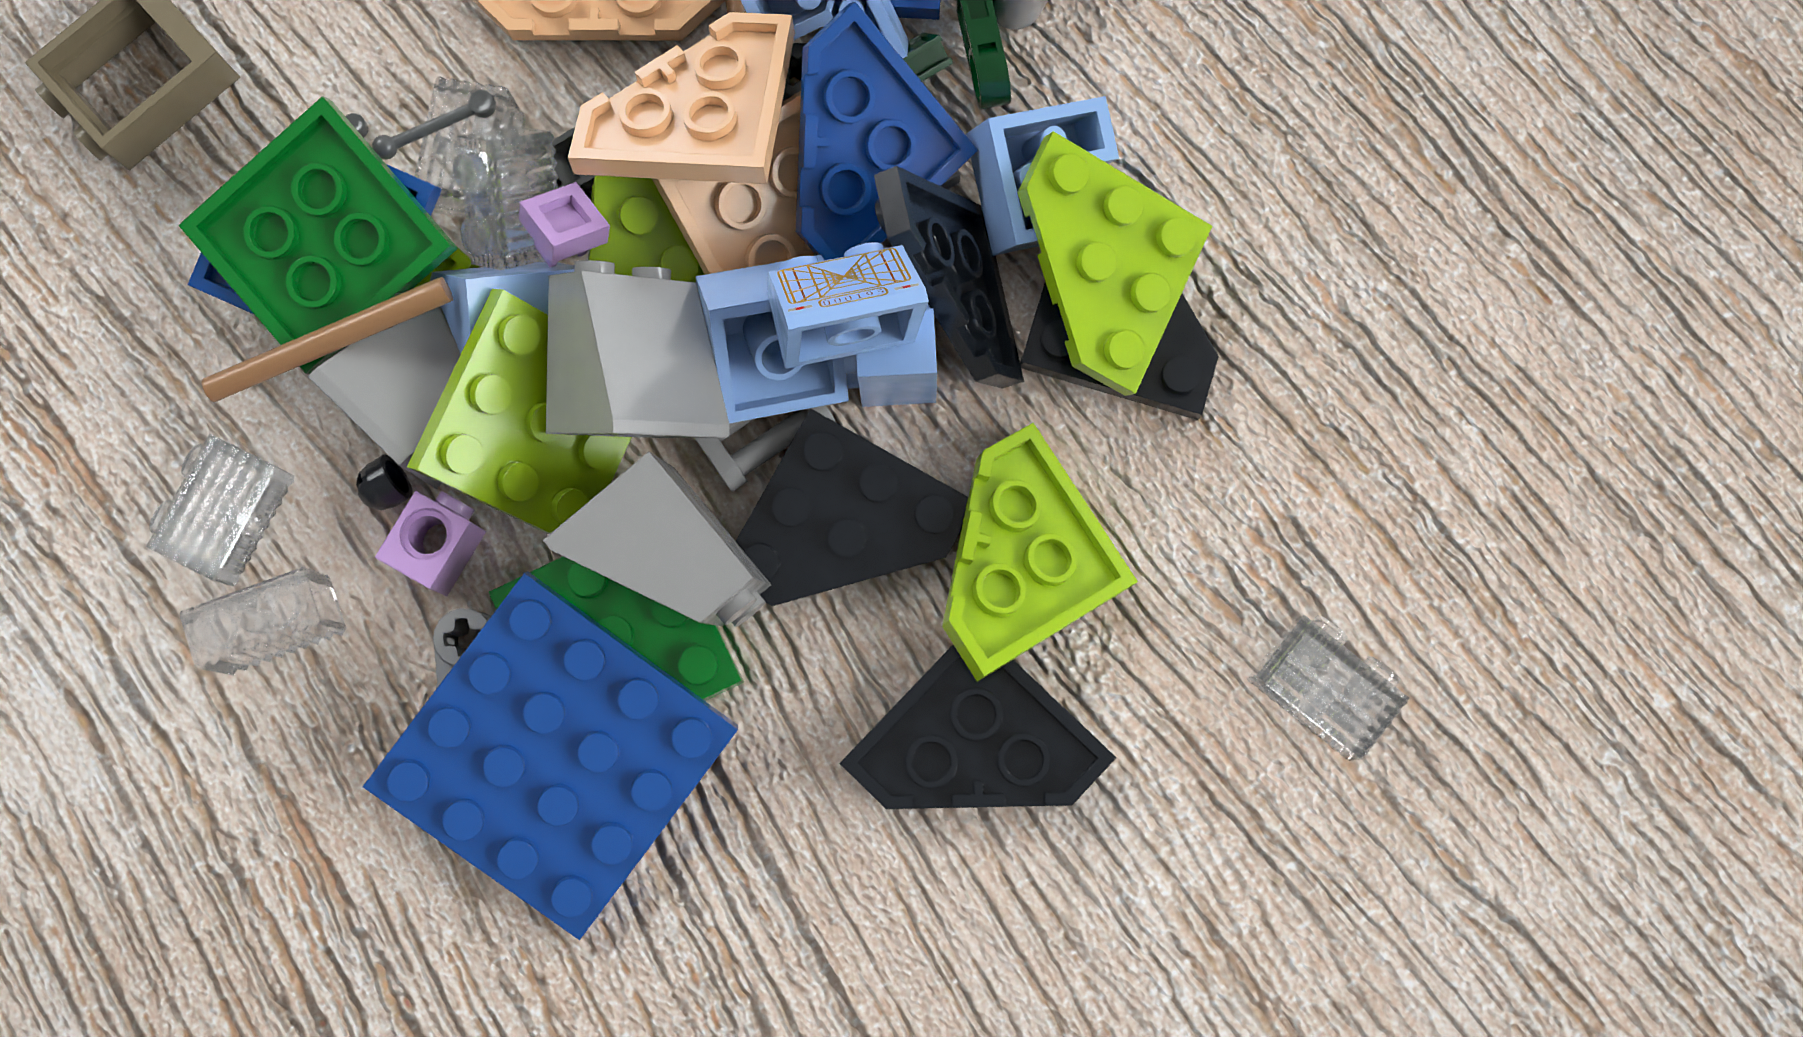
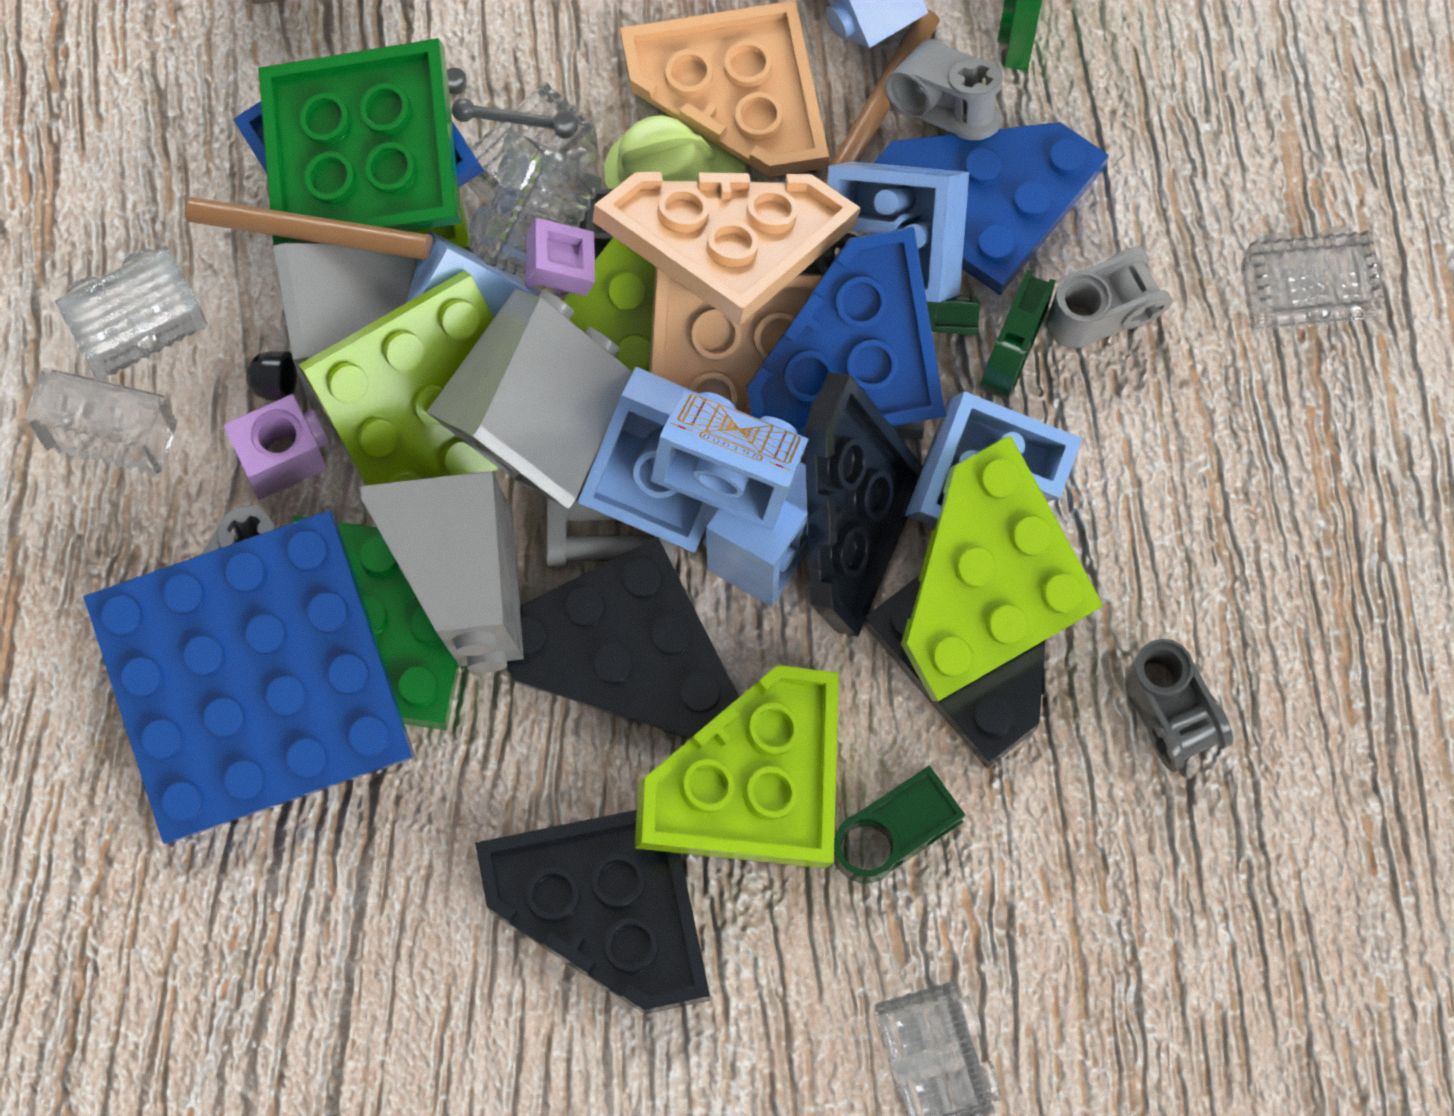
camera: 30 degrees right, 10 degrees down
(580, 71) = (668, 148): none -> yellowish green piece
(1169, 503) = (909, 817): none -> dark green piece
(1320, 271) = (1177, 708): none -> dark grey piece

